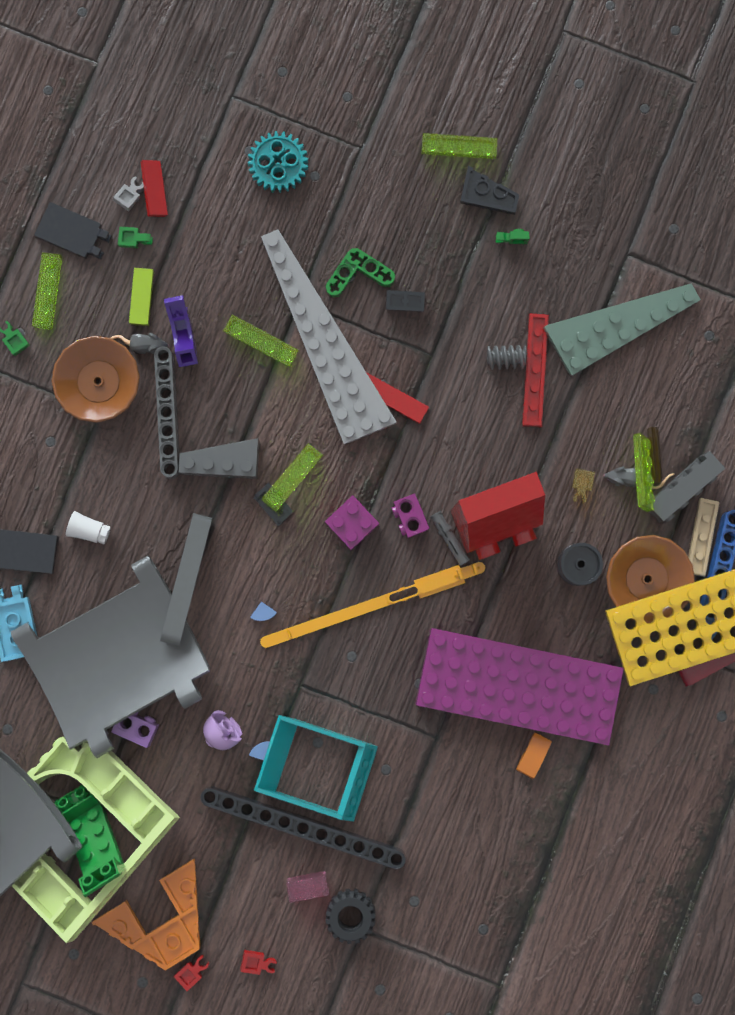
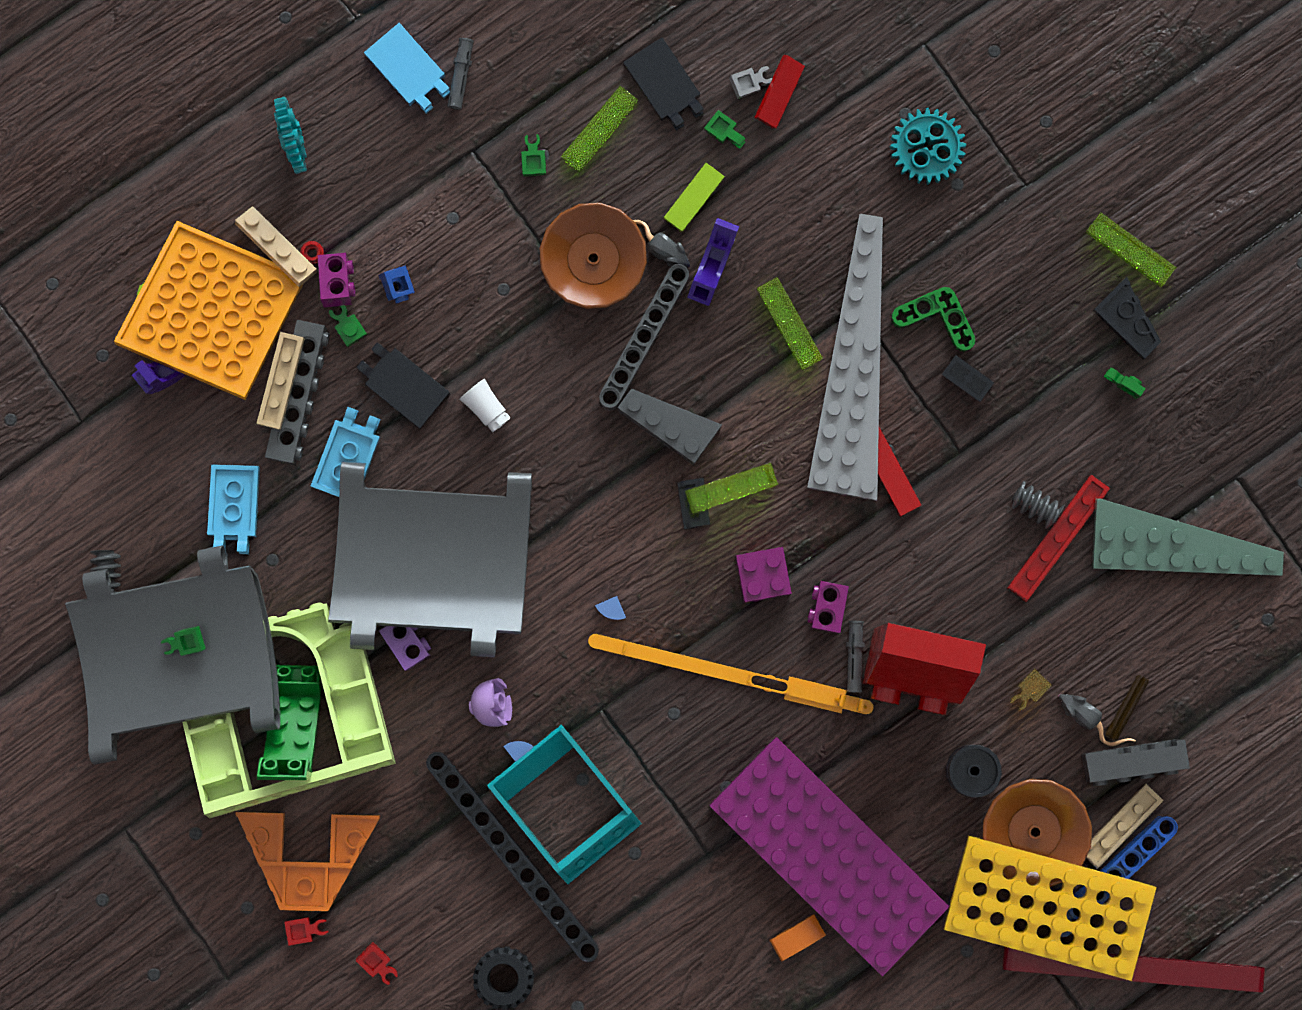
camera: 30 degrees right, 0 degrees up
(186, 579) = (555, 523): dark grey beam -> none
(307, 886) = (478, 919): clear pink brick -> none
(643, 472) = (1102, 717): clear neon green plate -> none

